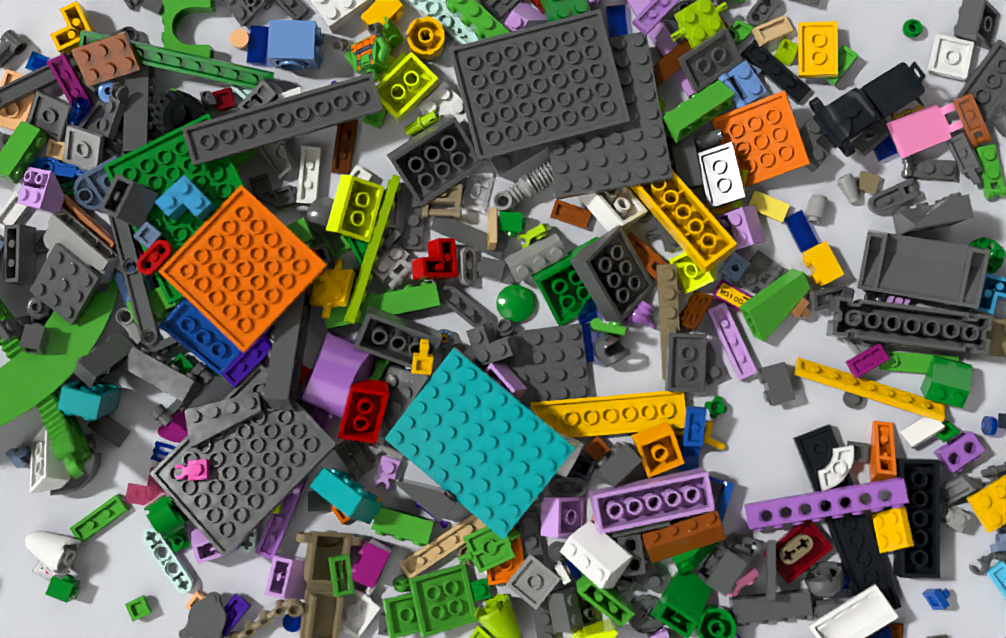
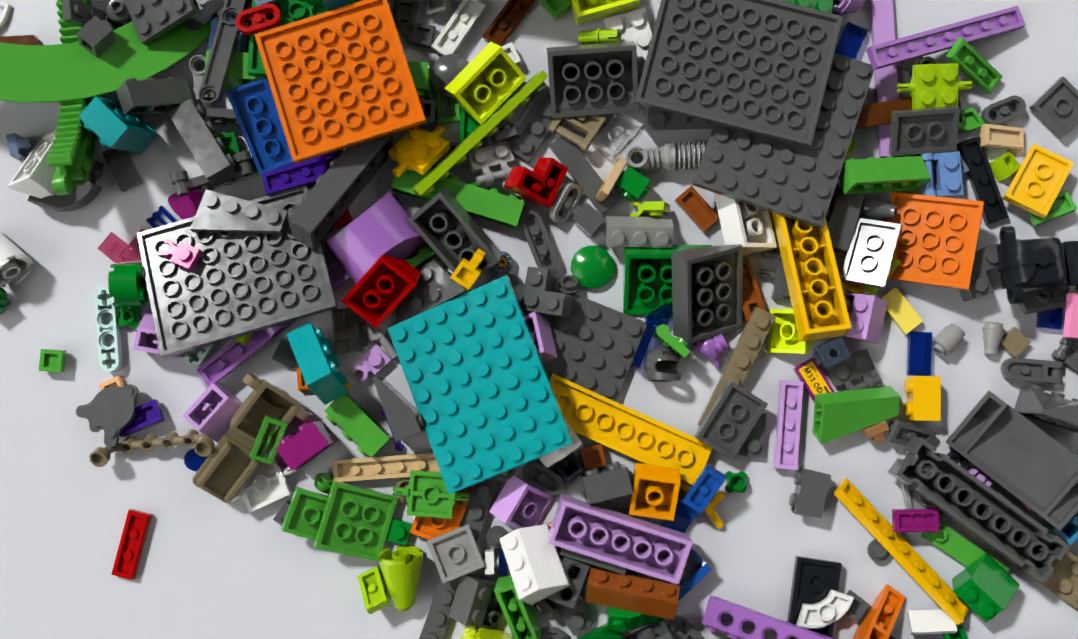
camera: 25 degrees right, 0 degrees up
(99, 518) = (64, 251): bright green tile -> none
(695, 310) = (769, 373): reddish brown hinge -> none

